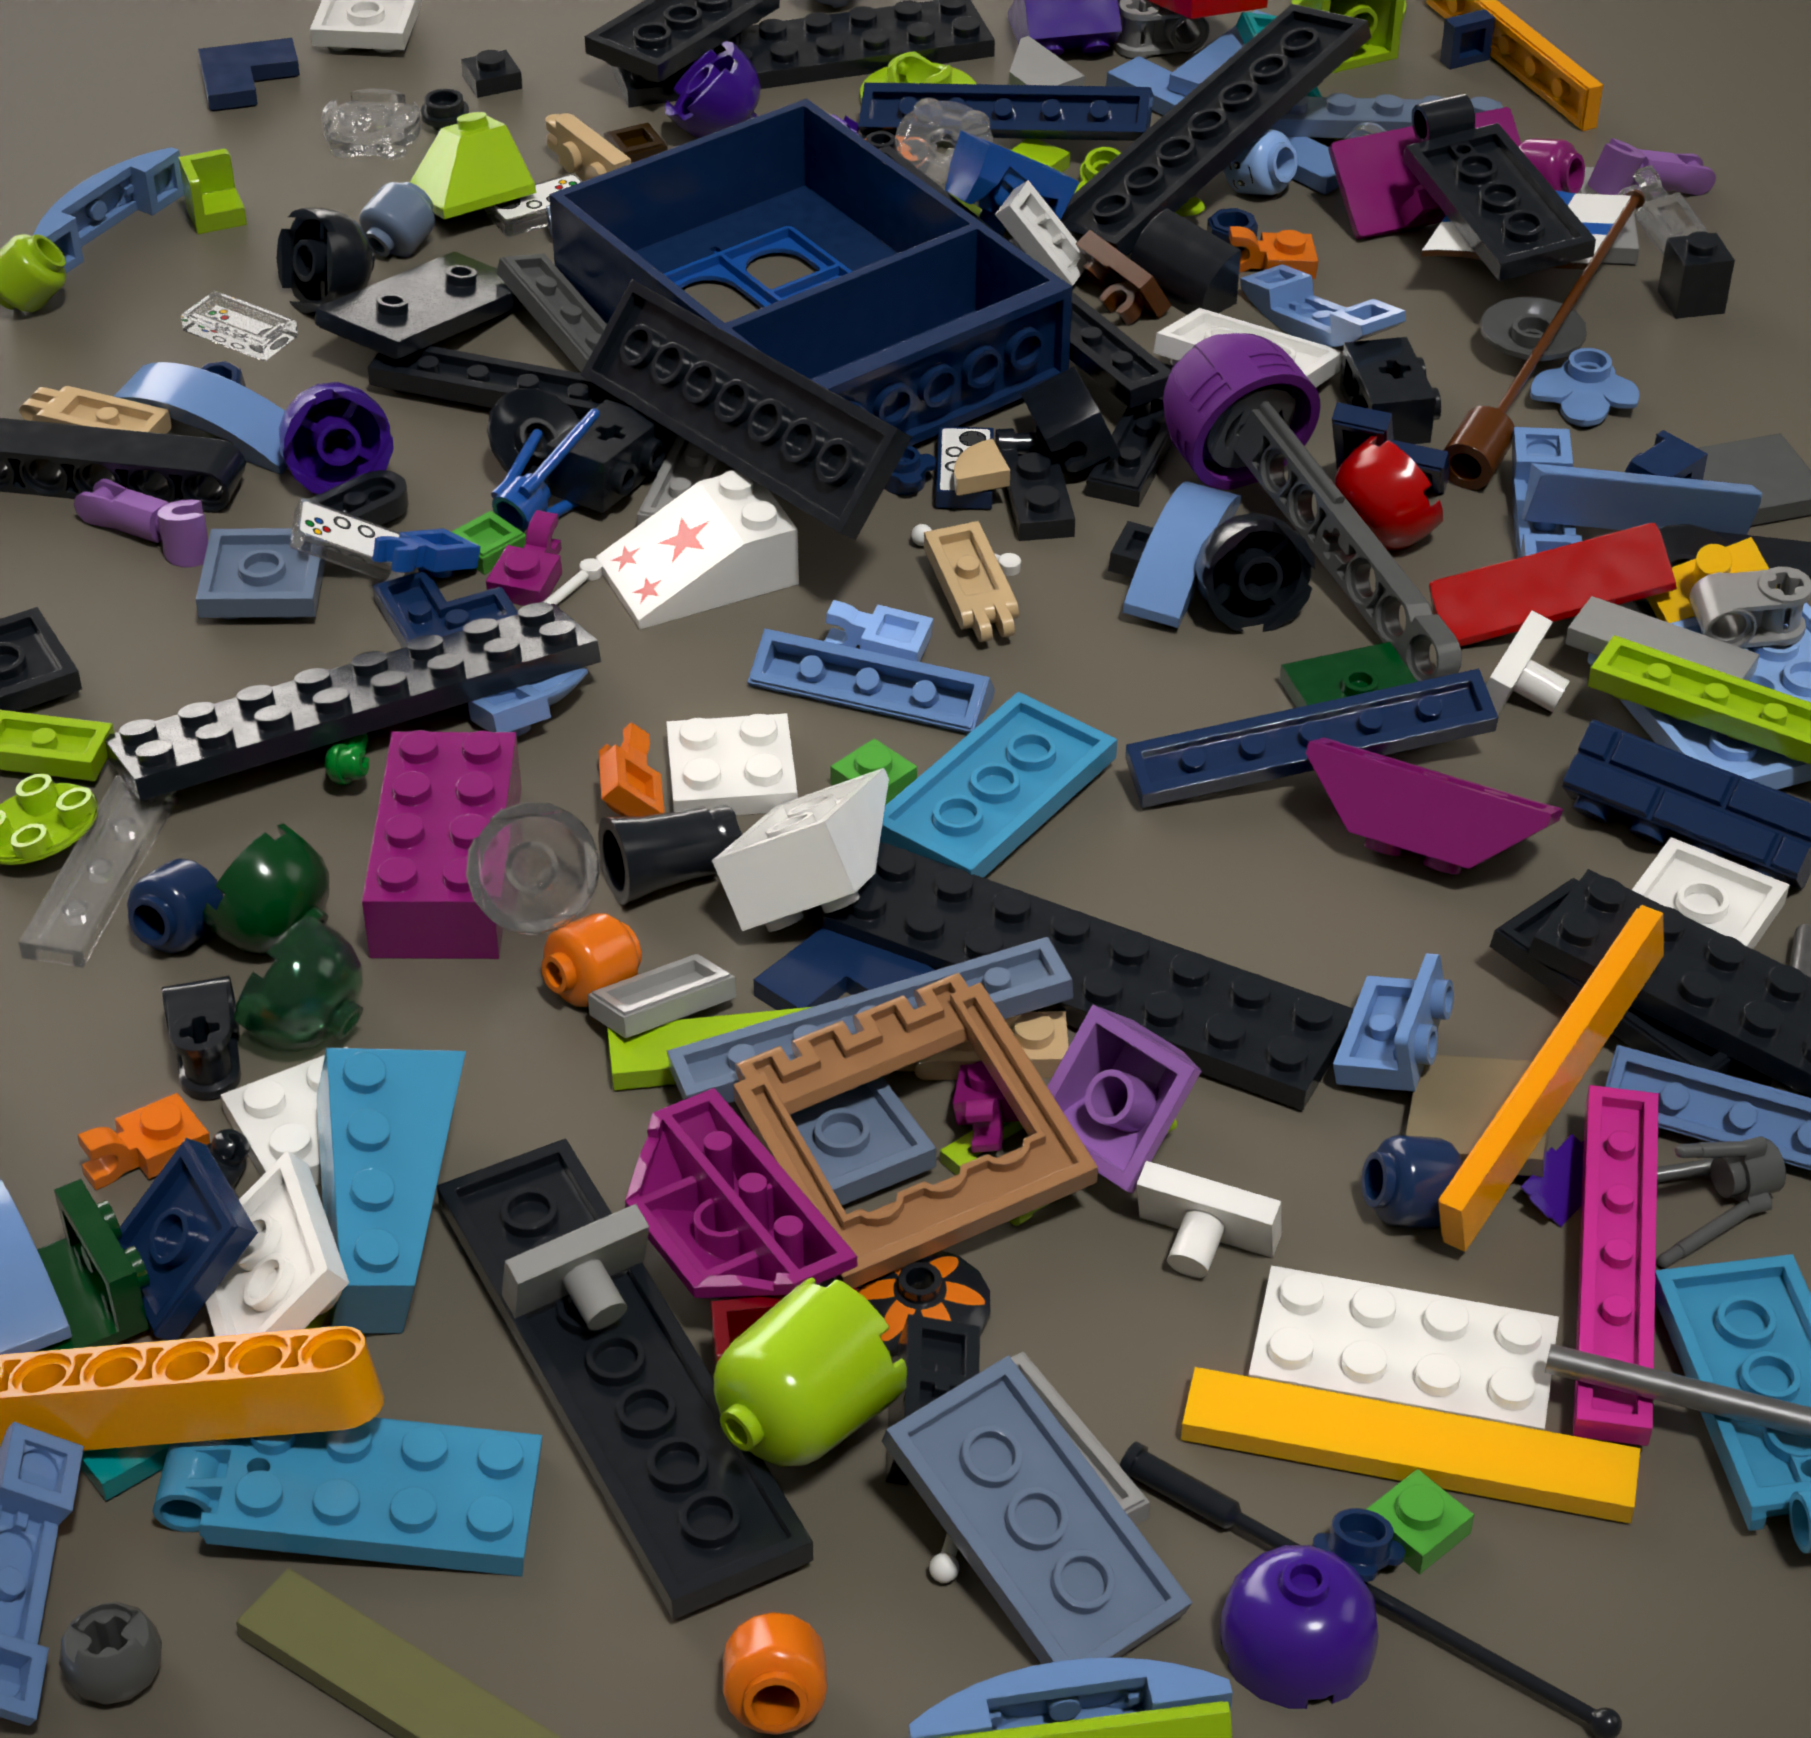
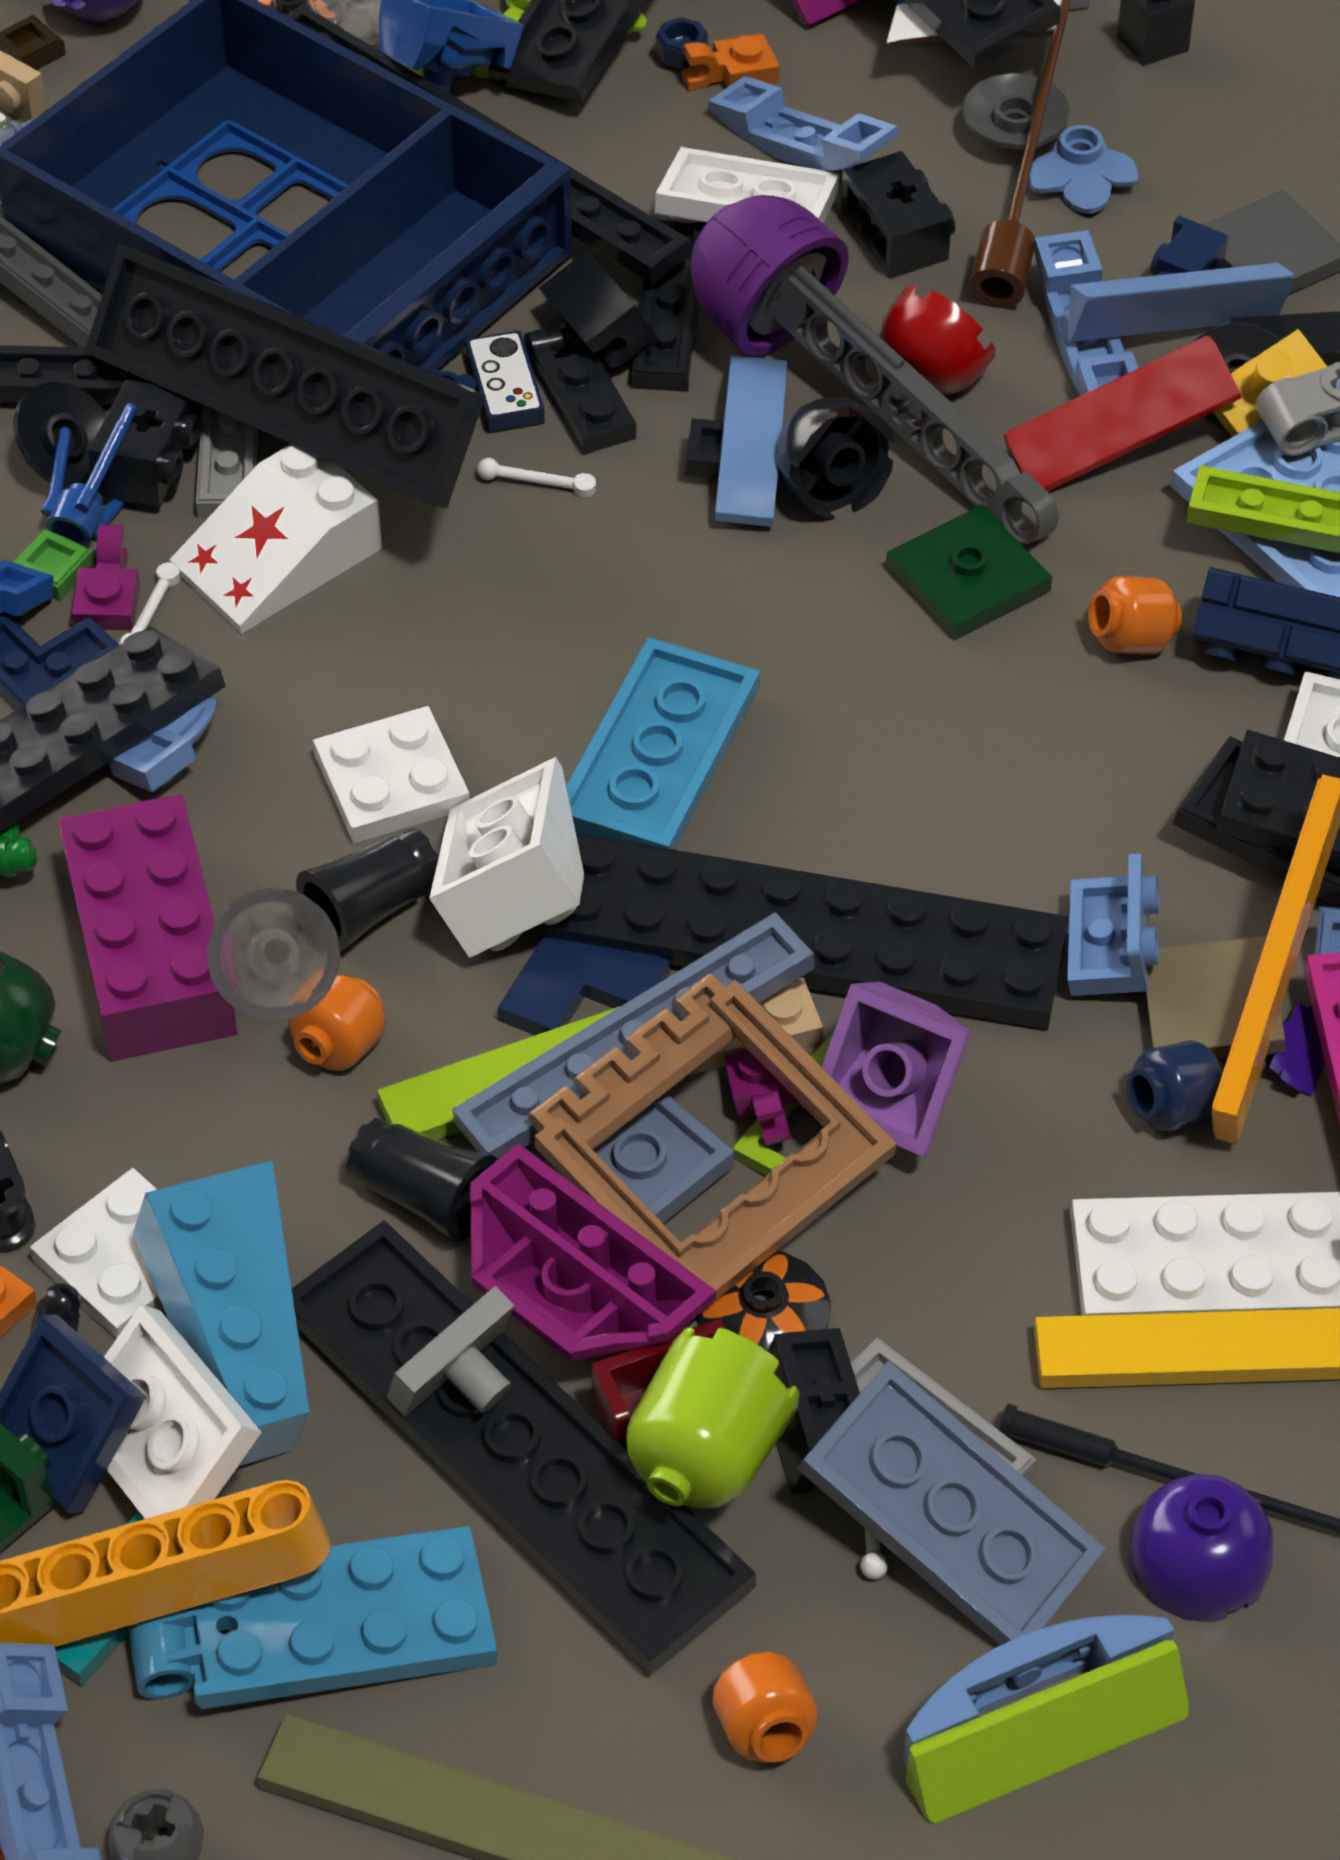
camera: 15 degrees left, 10 degrees up
(306, 990) = (78, 1122): clear green cylinder -> none
(609, 1100) = (418, 1173): none -> black plant
(626, 779) = (302, 818): orange plate -> none
(661, 995) = (418, 1045): light grey tile -> none
(871, 681) = (495, 651): medium blue slope -> none
(873, 757) = (530, 746): bright green plate -> none
(883, 632) = (496, 596): light blue plate -> none
(972, 579) = (558, 515): tan hinge -> none
(980, 469) = (527, 385): tan tile -> none
(1041, 233) = (499, 91): white tile -> none
(1128, 280) = (602, 129): reddish brown plate -> none
(1188, 263) = (651, 98): black brick -> none
(1205, 1216) = (1001, 1164): white tile -> none
(1277, 742) = (941, 633): dark blue plate -> none
(1356, 424) = (893, 274): dark blue tile -> none
(1362, 1541) = (1231, 1453): dark blue plate -> none
(1423, 809) = (1076, 692): magenta wedge -> none
(1424, 1519) = (1272, 1419): bright green plate -> none
(1511, 756) = (1134, 615): none -> orange head
(1523, 675) = (1114, 518): white tile -> none
(1601, 620) = (1186, 448): light grey tile -> none

